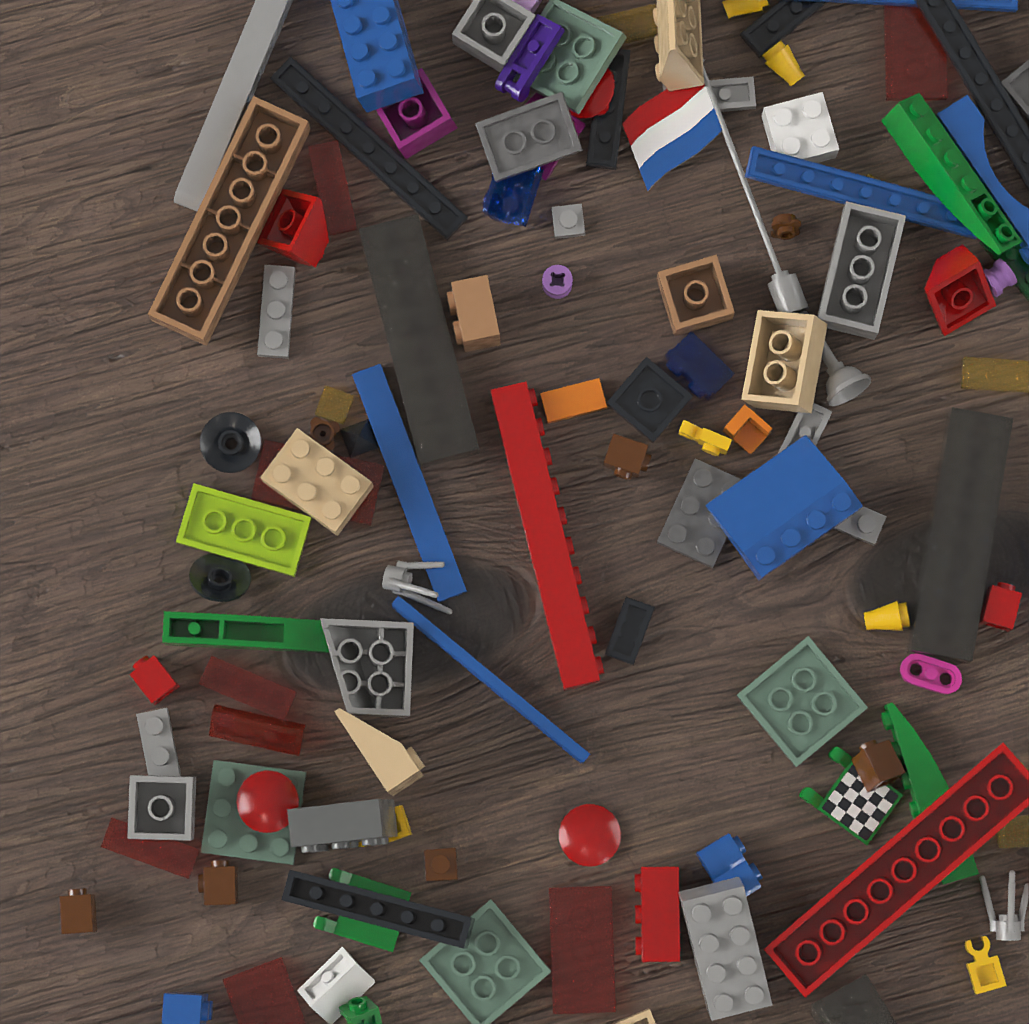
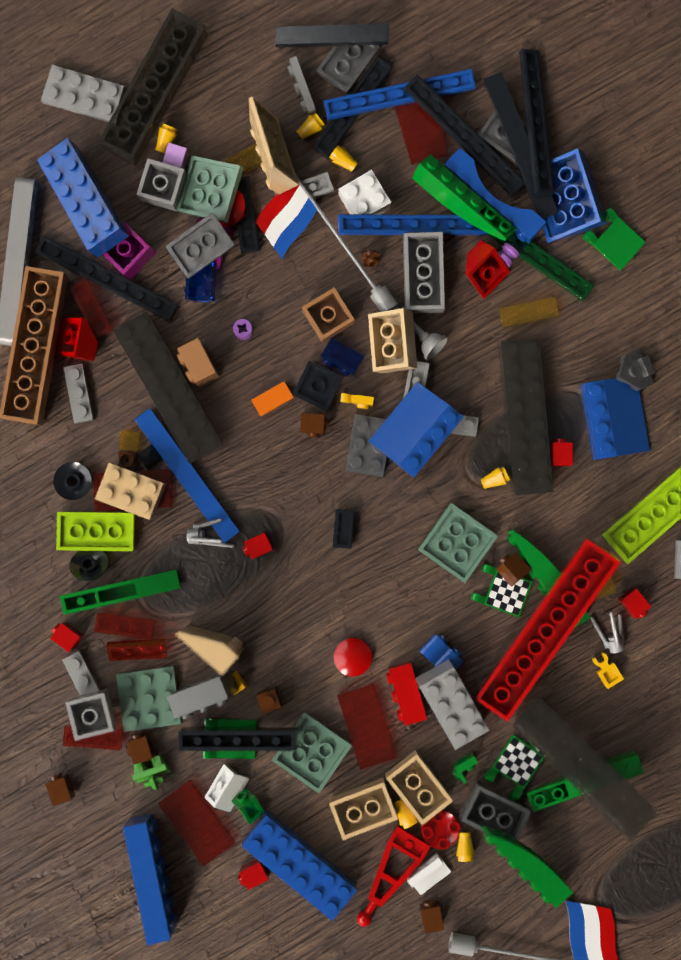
camera: 15 degrees left, 5 degrees up
(226, 932) = (142, 774): none -> bright green hips
(265, 801) = (153, 691): red dish -> none
(372, 665) = (194, 593): light grey wedge -> none
(488, 621) = (257, 546): none -> red brick
(490, 680) = (268, 581): blue tile -> none
(529, 57) = (187, 196): dark purple plate -> none
(545, 535) = (276, 484): red brick -> none
(568, 221) = (239, 290): light grey plate -> none
(747, 429) = (381, 388): orange panel -> none
(930, 674) = (529, 505): dark pink plate -> none

